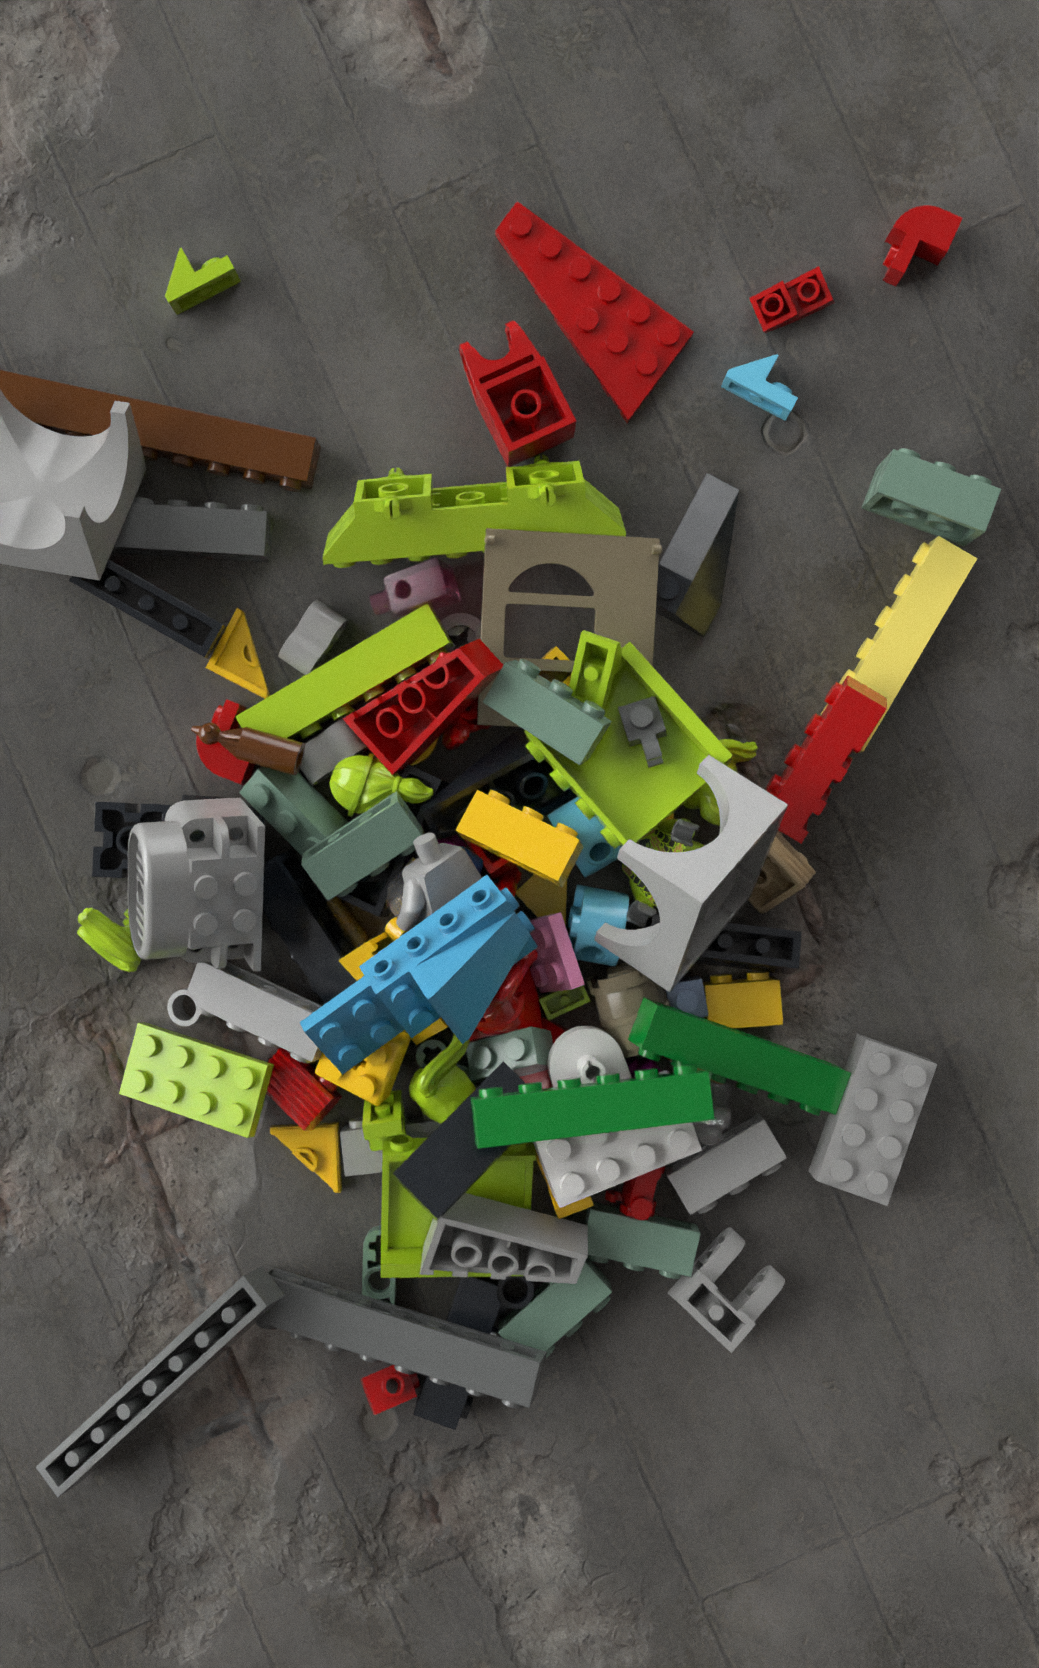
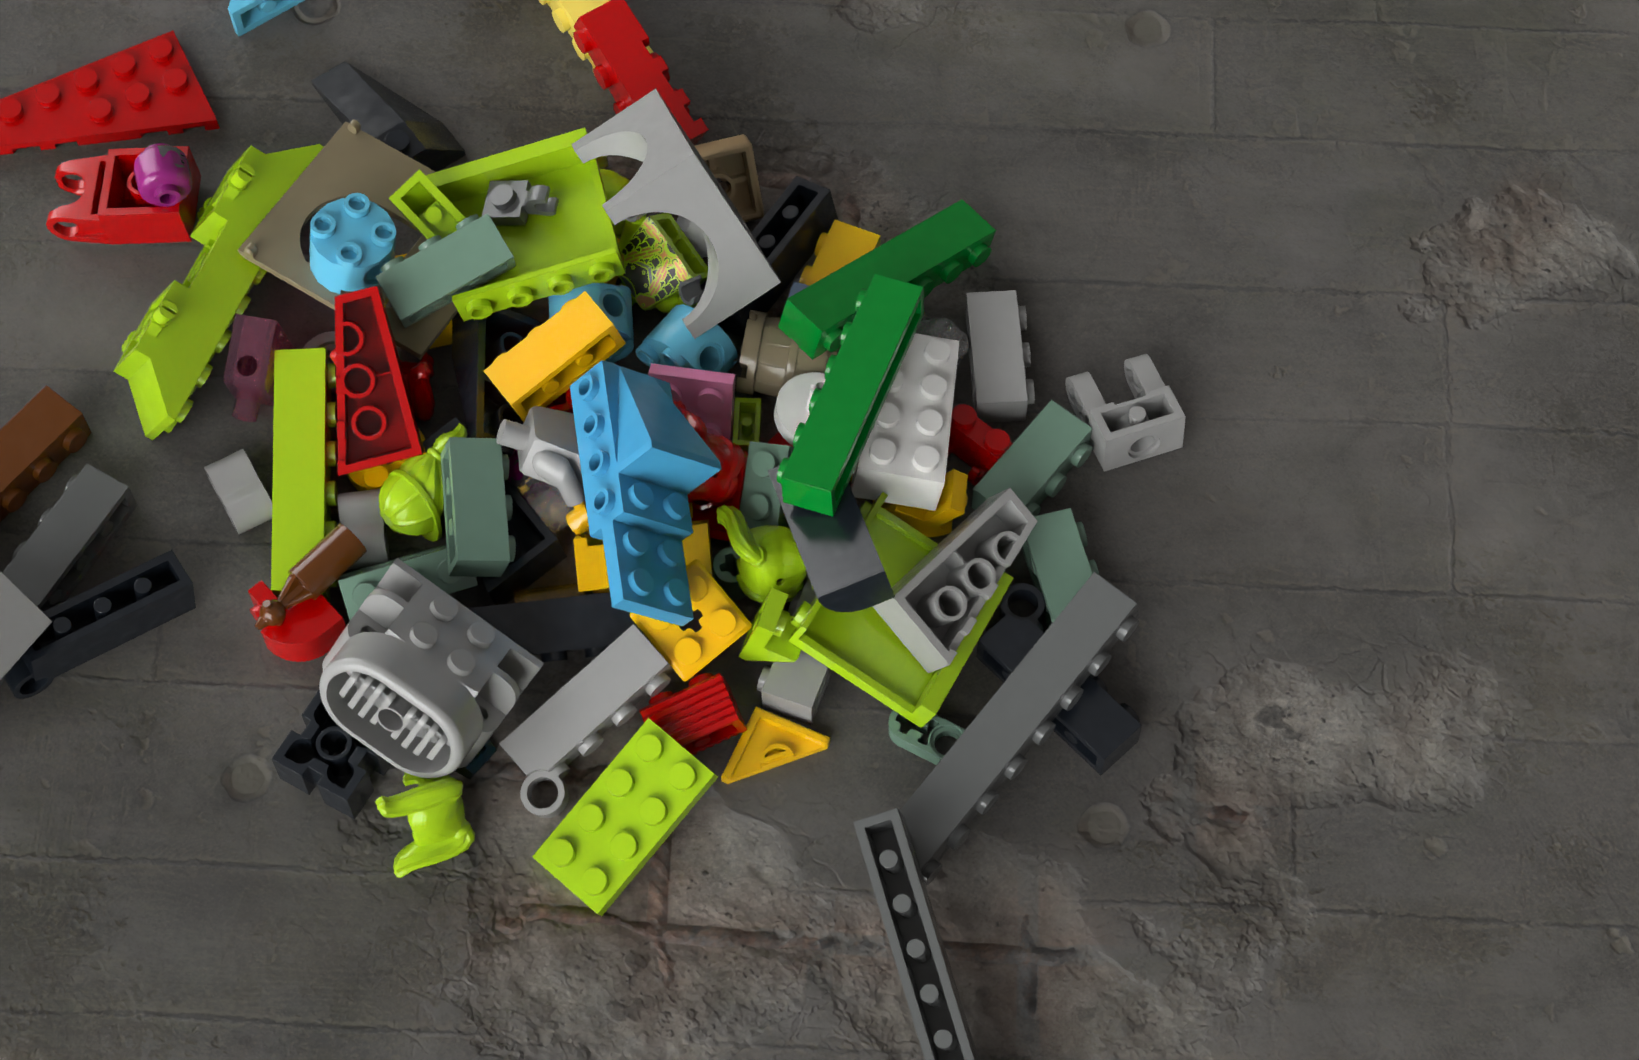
camera: 60 degrees left, 25 degrees down
(237, 657) = (220, 578): yellow tile -> none
(377, 1394) = (1064, 777): red brick -> none
(528, 422) = (162, 175): none -> magenta head
(534, 621) = (350, 243): none -> medium azure brick
(875, 1120) = (1036, 215): light grey brick -> none

